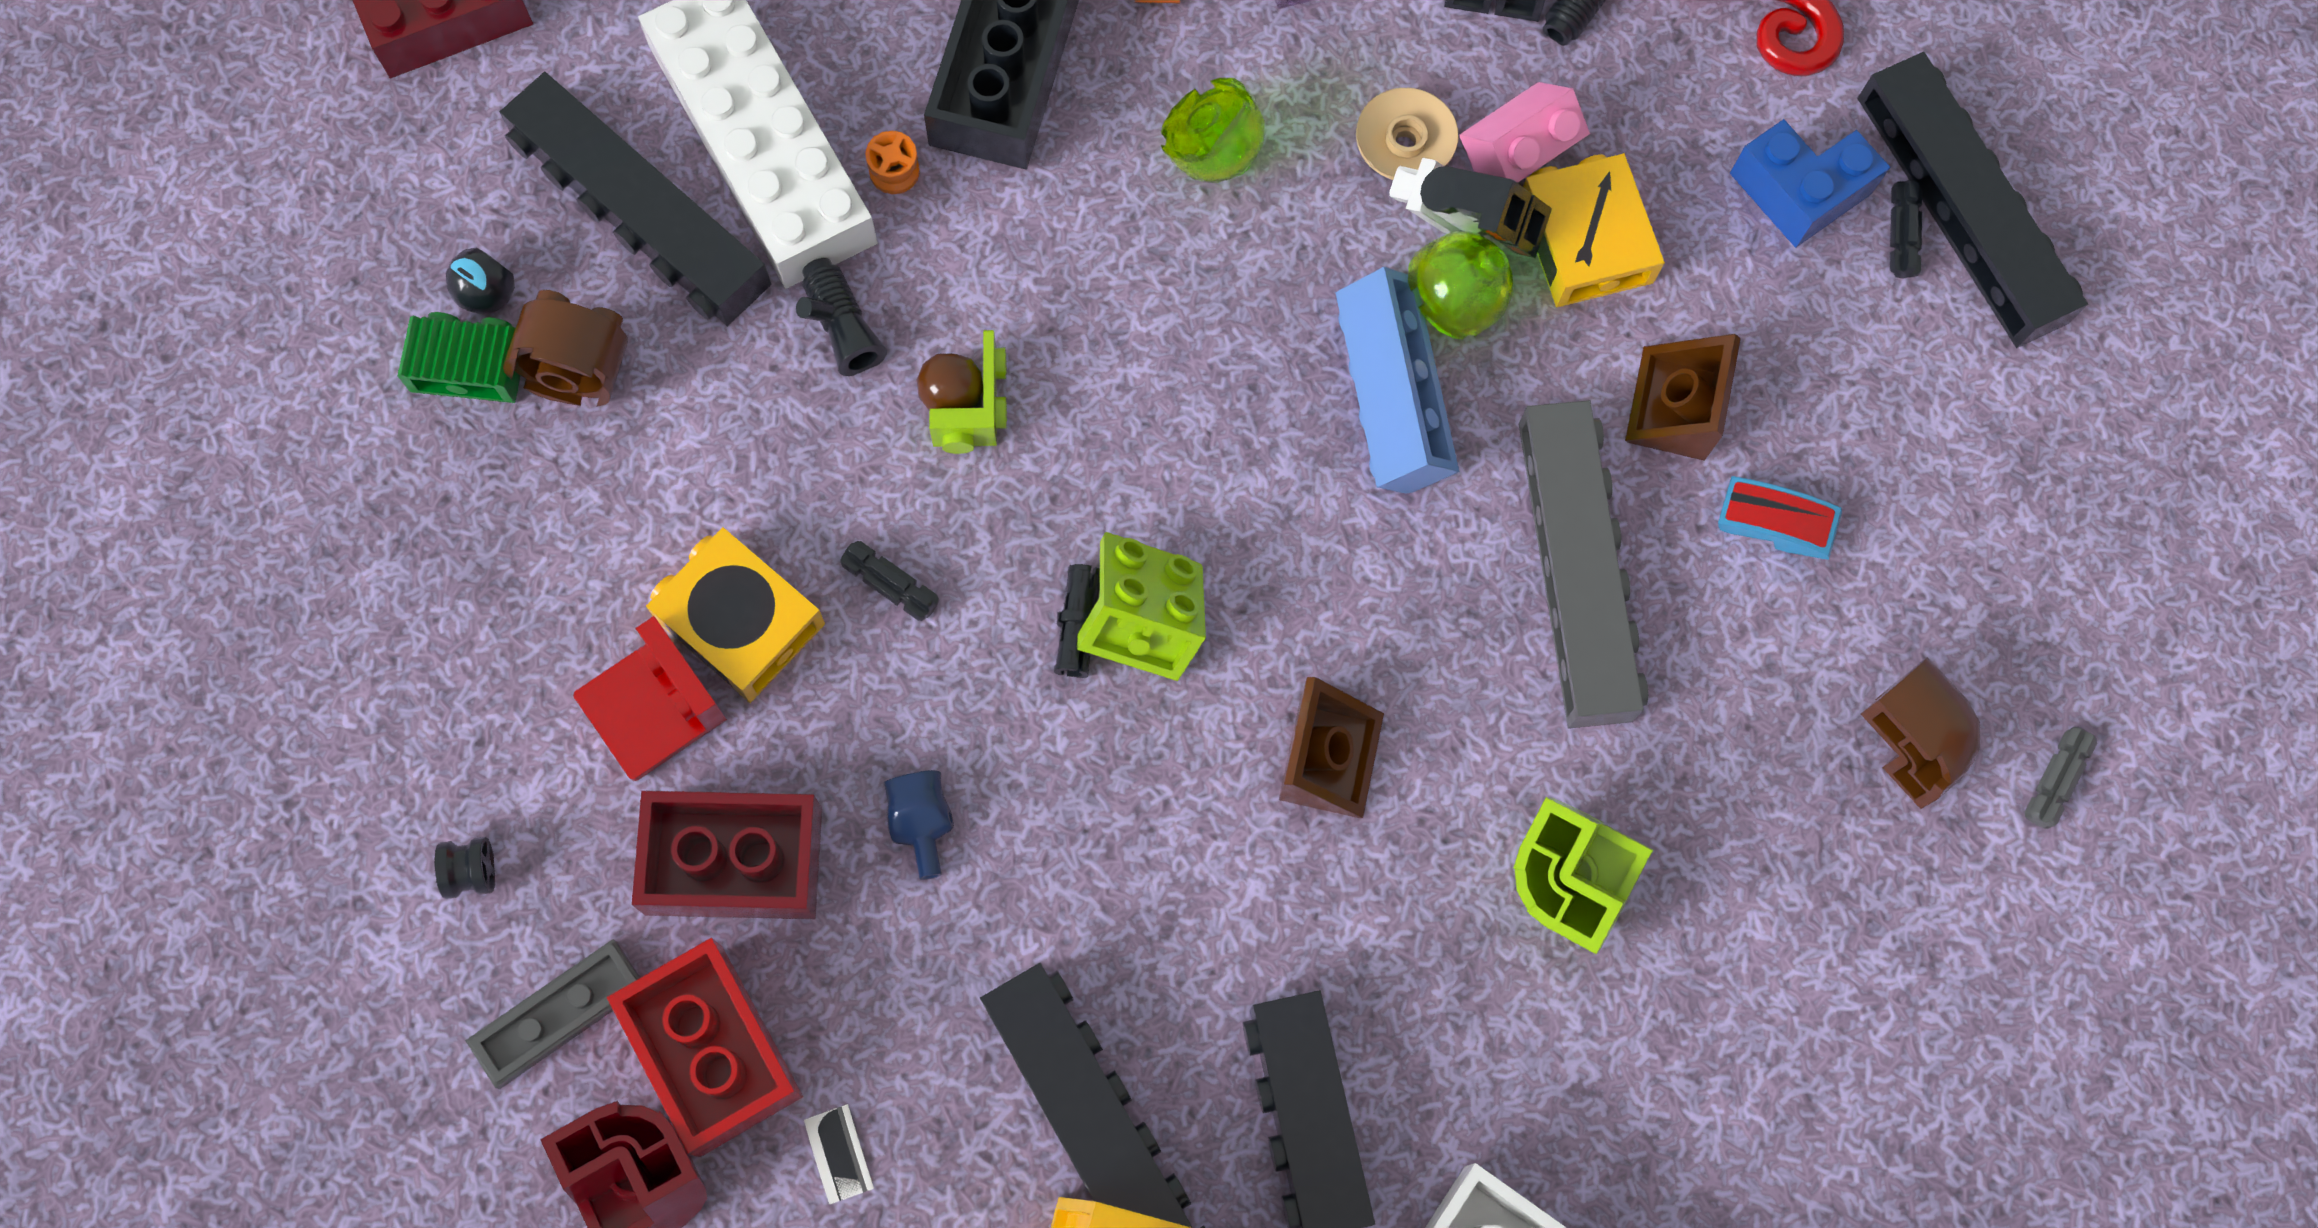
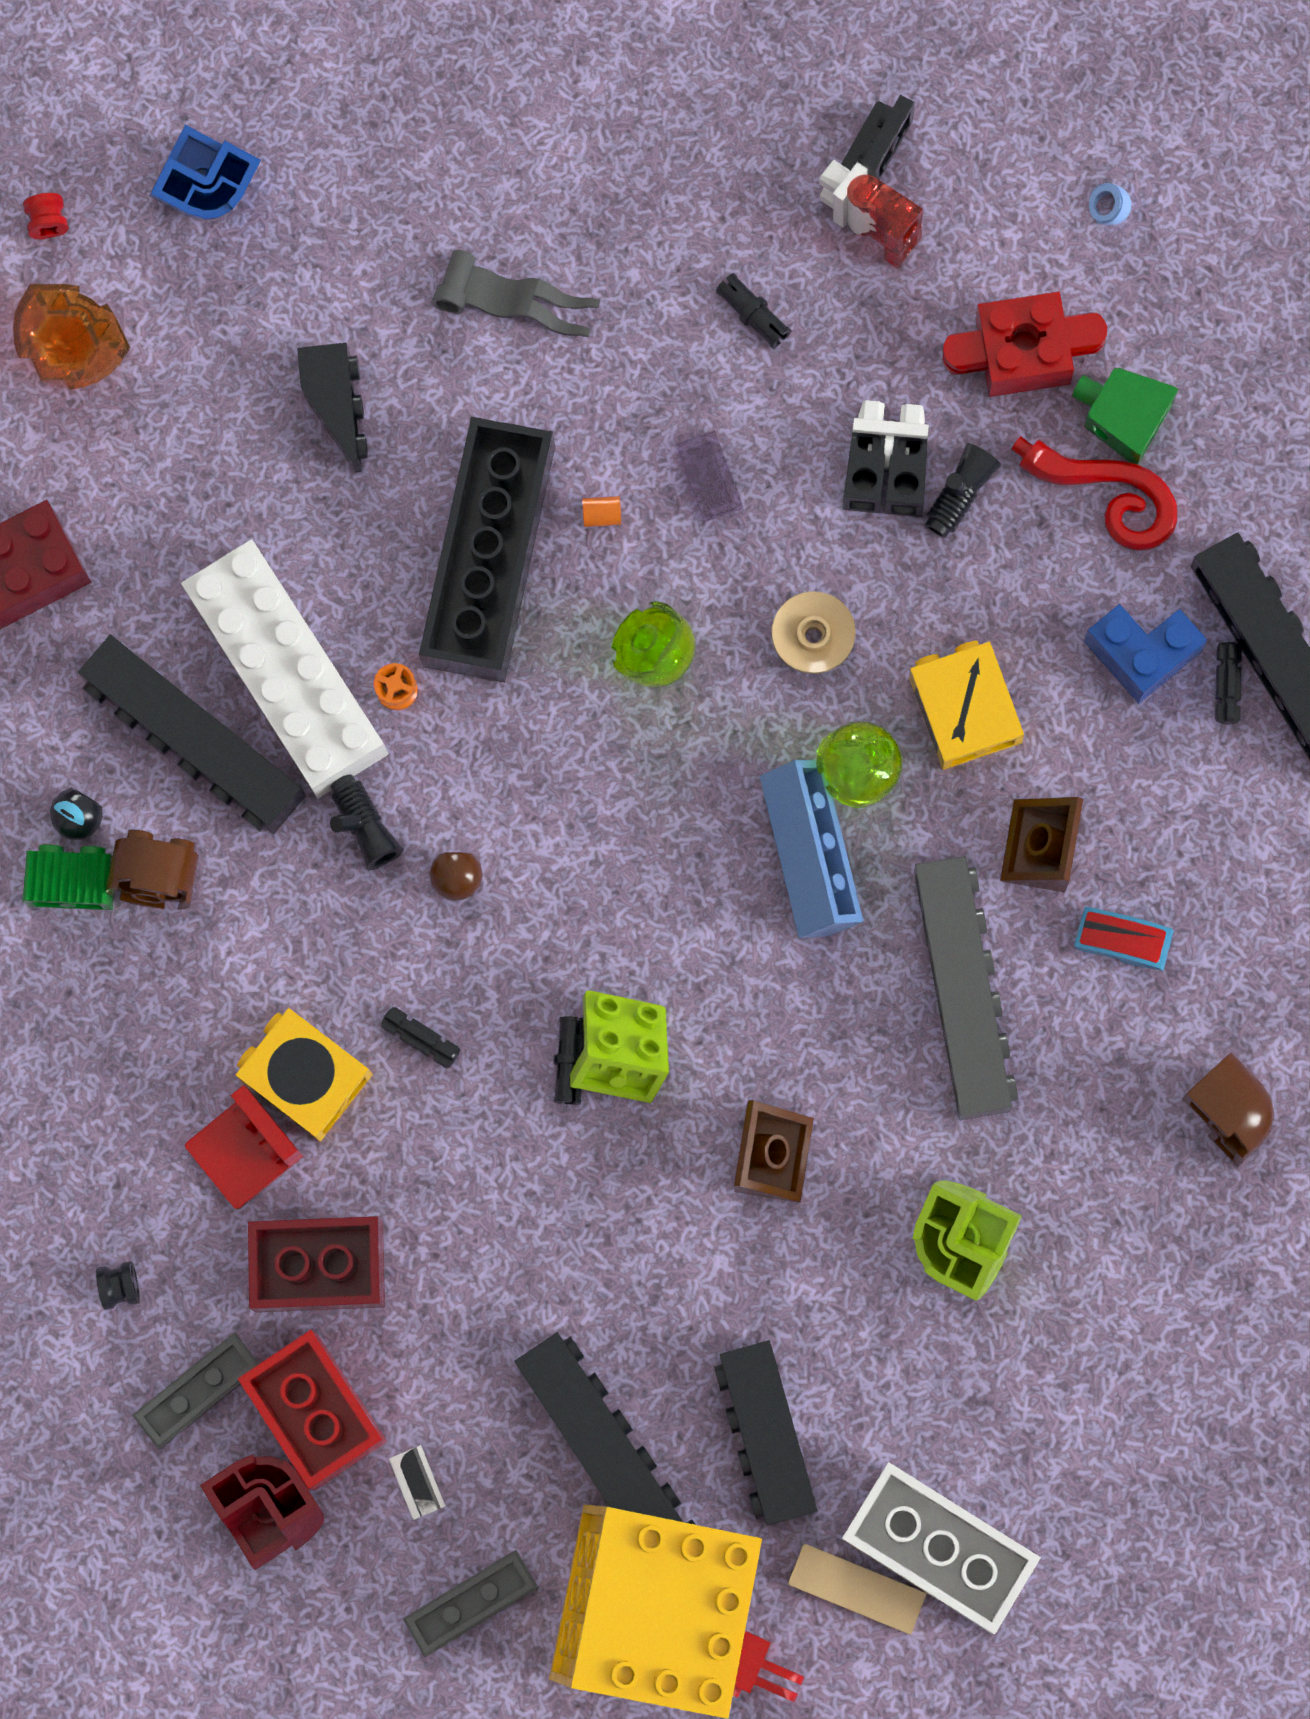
camera: 10 degrees right, 5 degrees up
(919, 817) = (458, 1224): dark blue piece -> none
(963, 428) = (468, 911): lime bracket -> none
(1473, 203) = (887, 705): black hips -> none
(1525, 132) = (909, 627): bright pink brick -> none

